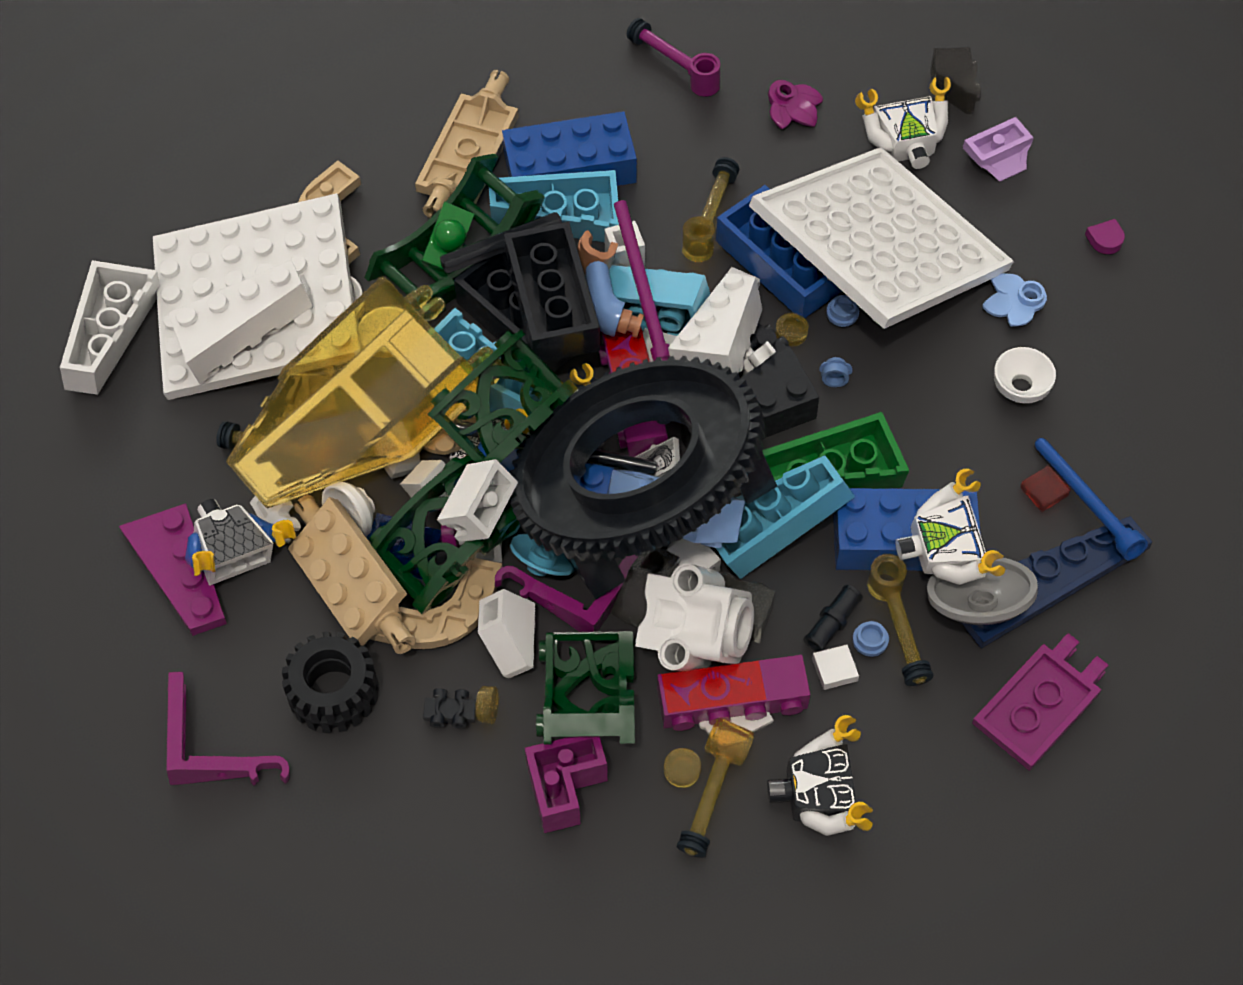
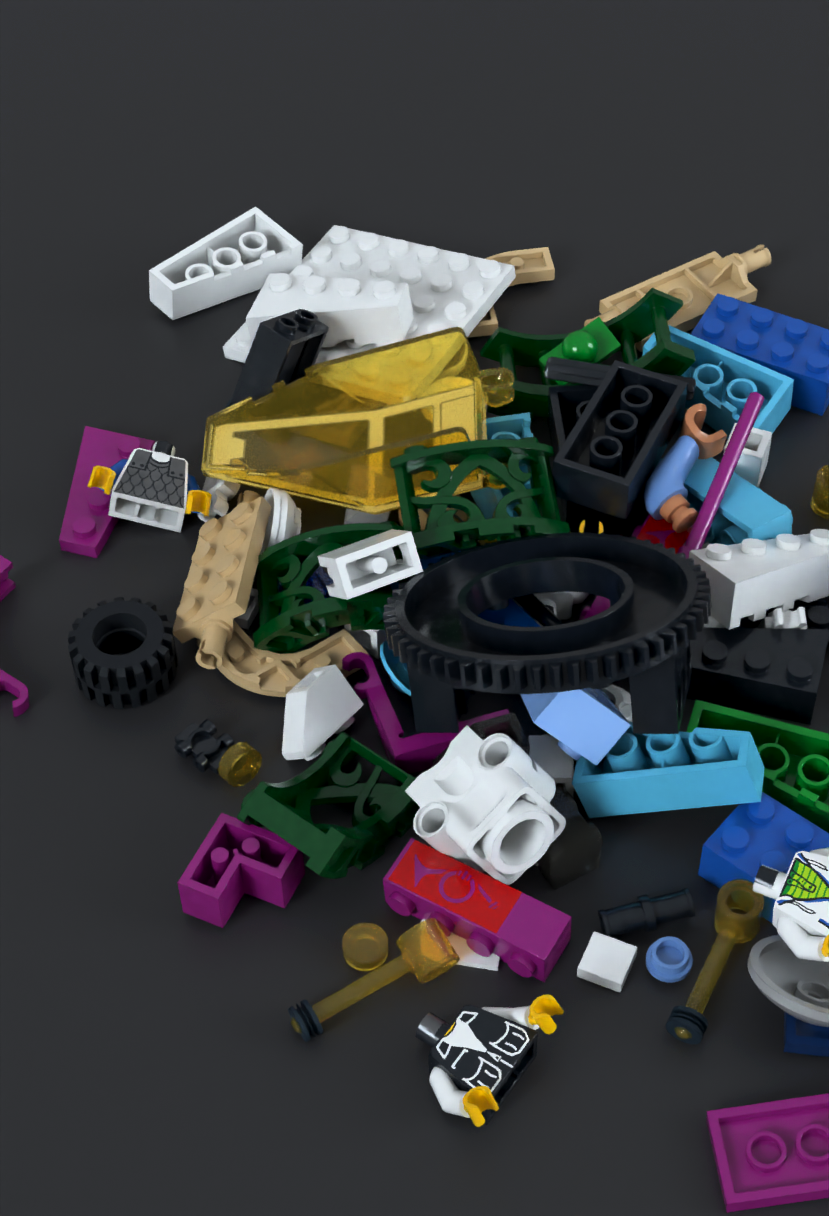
camera: 40 degrees right, 10 degrees down
(242, 379) = (280, 353): none -> black window

